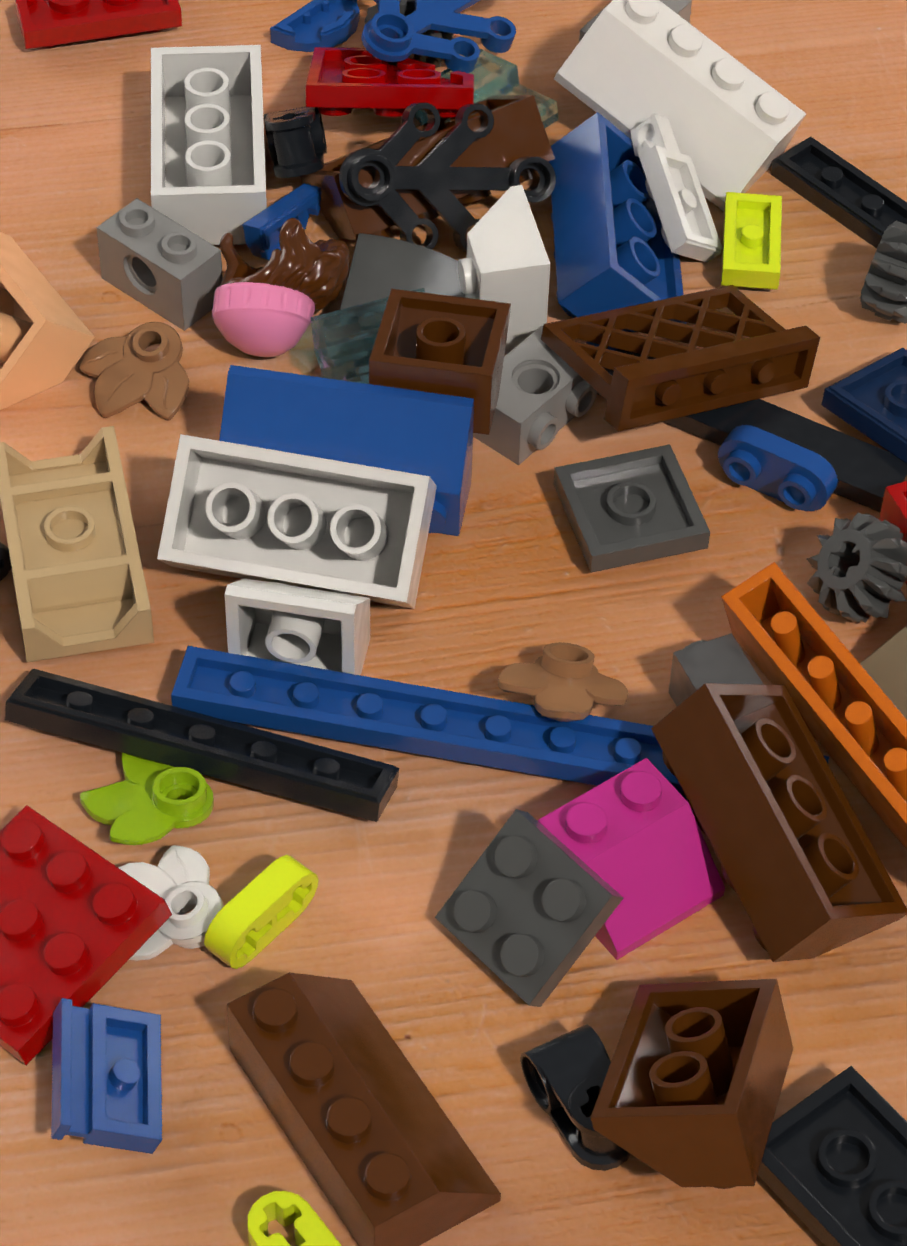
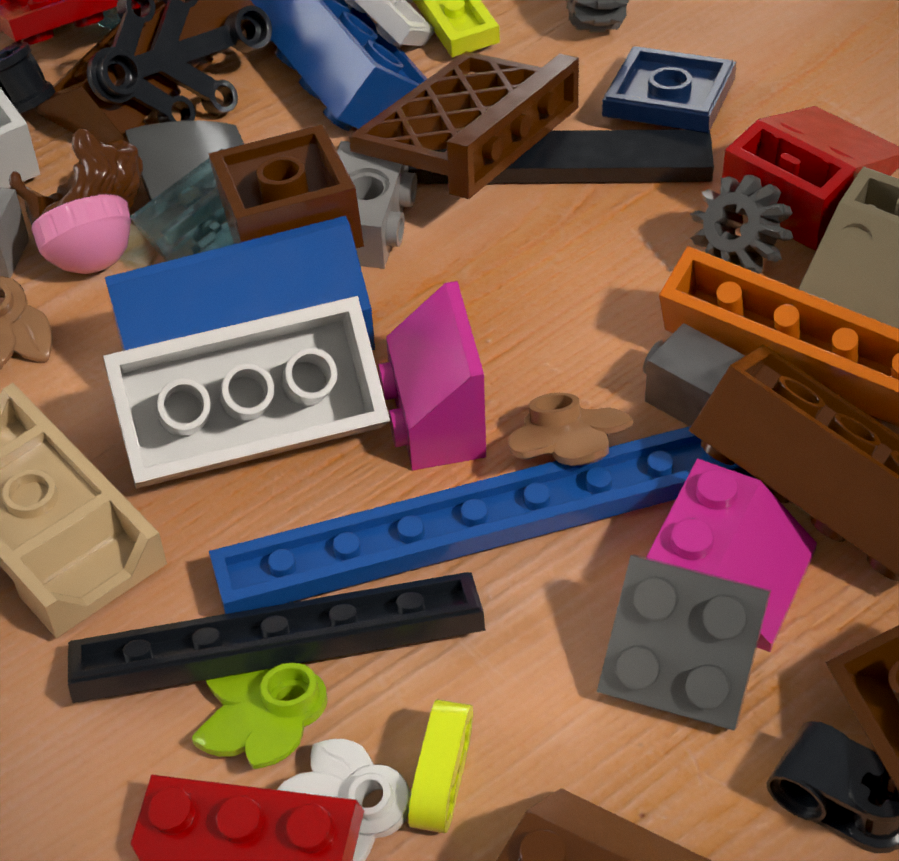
camera: 25 degrees left, 0 degrees up
(263, 229) = (46, 153): blue tile -> none
(297, 625) = (305, 484): white slope -> none
(474, 590) = (436, 383): none -> dark pink slope
(508, 264) = (283, 91): white slope -> none
(631, 508) = (511, 261): dark grey plate -> none
(777, 468) = (608, 177): blue plate -> none

